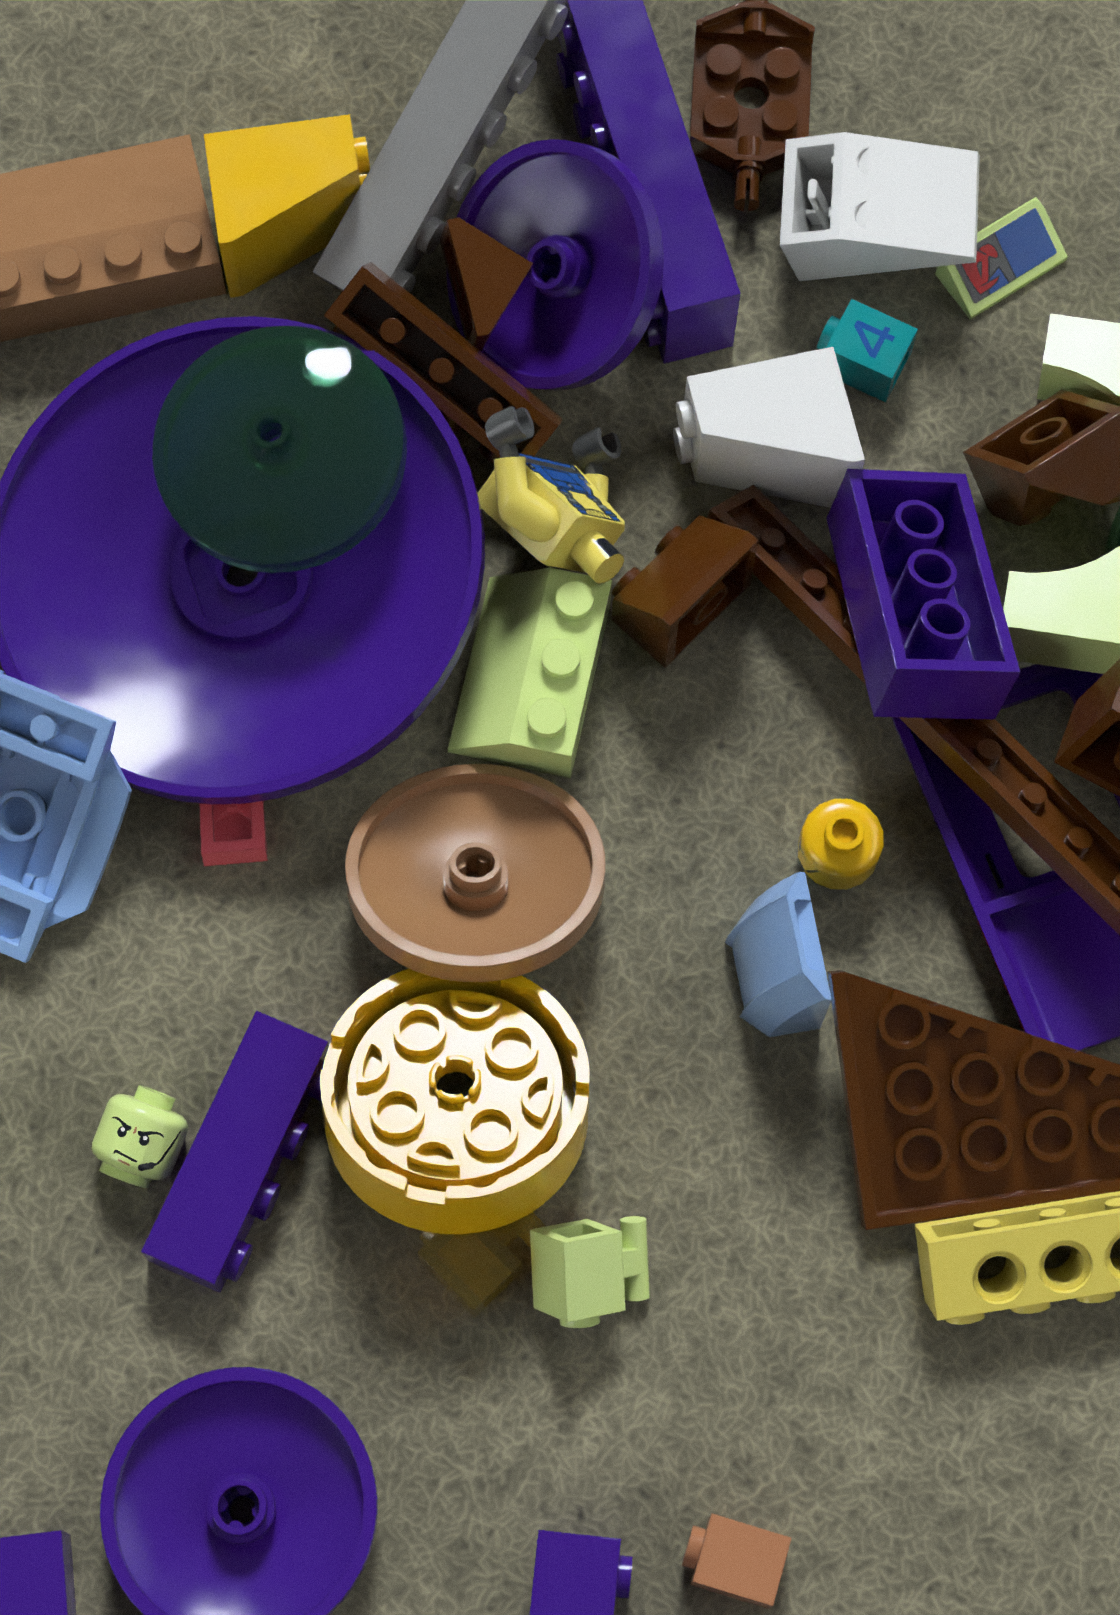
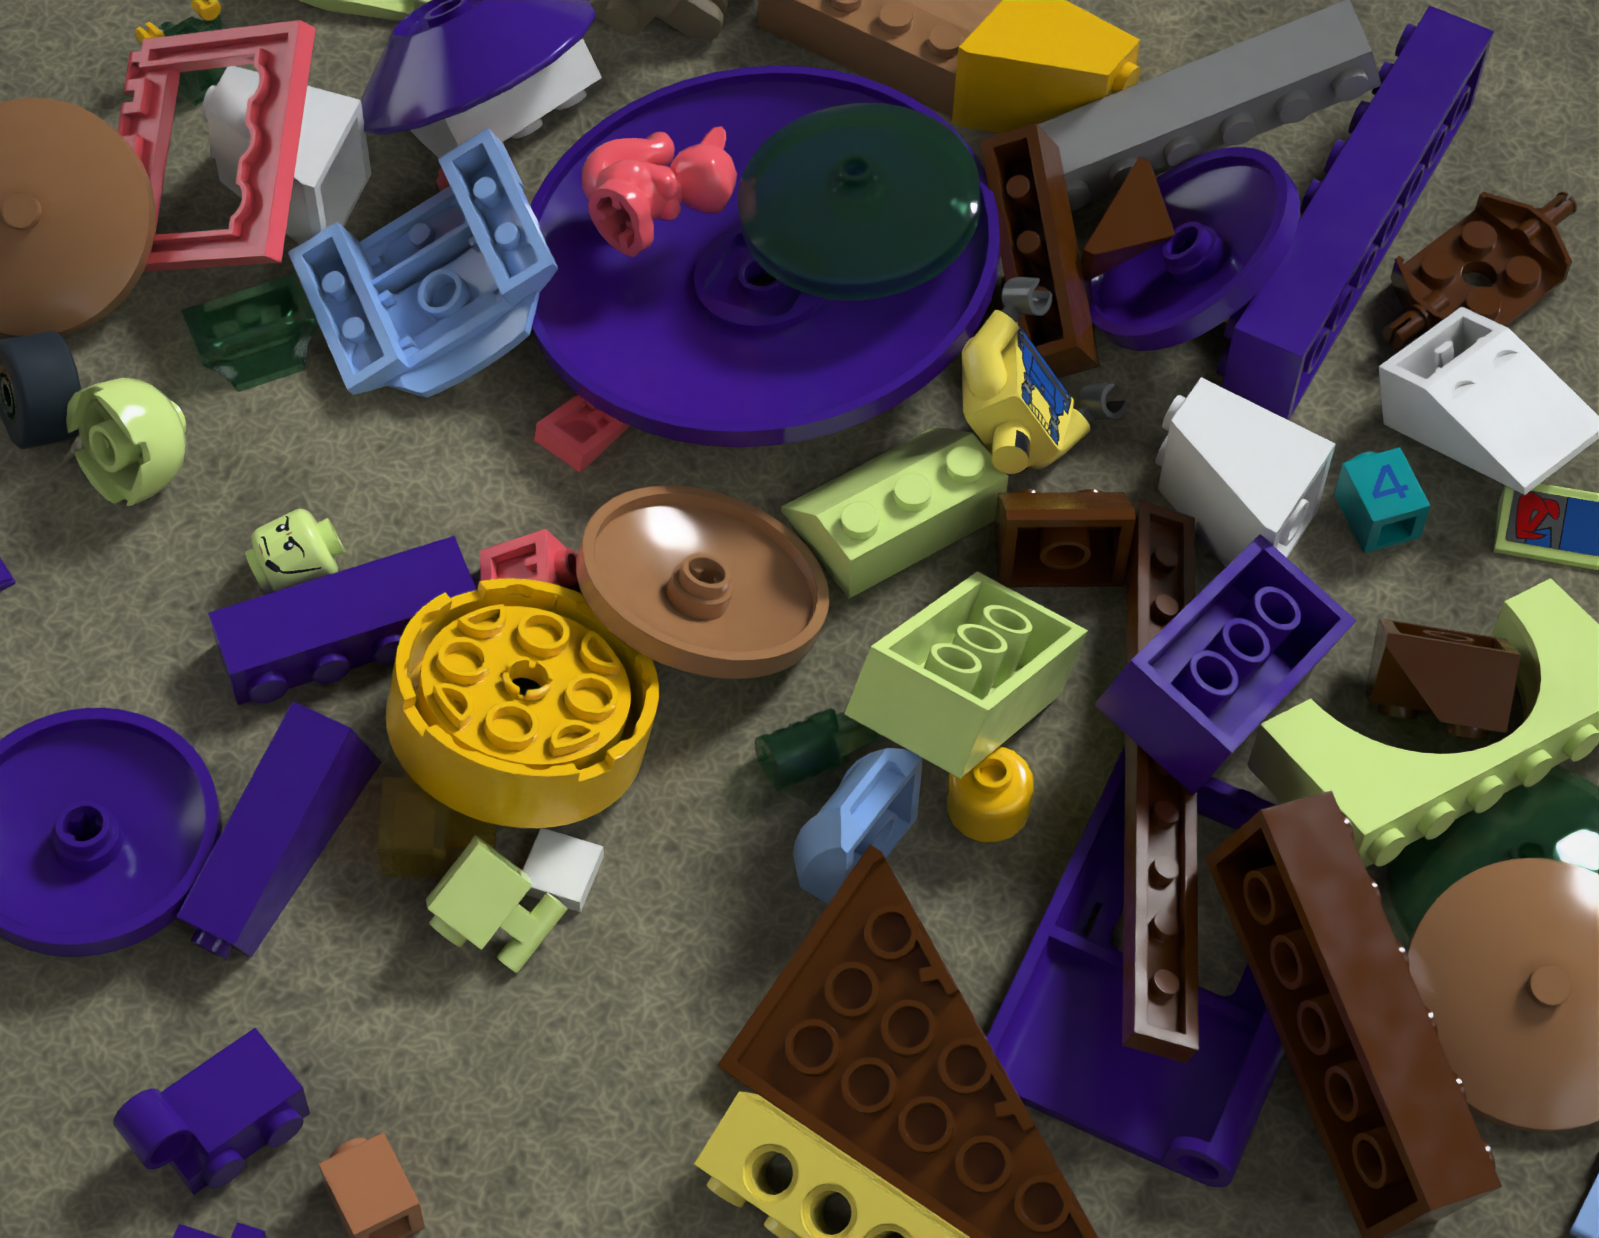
camera: 45 degrees right, 15 degrees down
(103, 598) = (634, 186): none -> coral animal
(329, 982) = (531, 557): none -> coral bracket
(382, 1372) = (277, 831): none -> dark purple slope
(600, 1188) = (562, 867): none -> white tile
(675, 920) = (810, 747): none -> clear green hinge
(759, 774) = (965, 673): none -> yellowish green brick

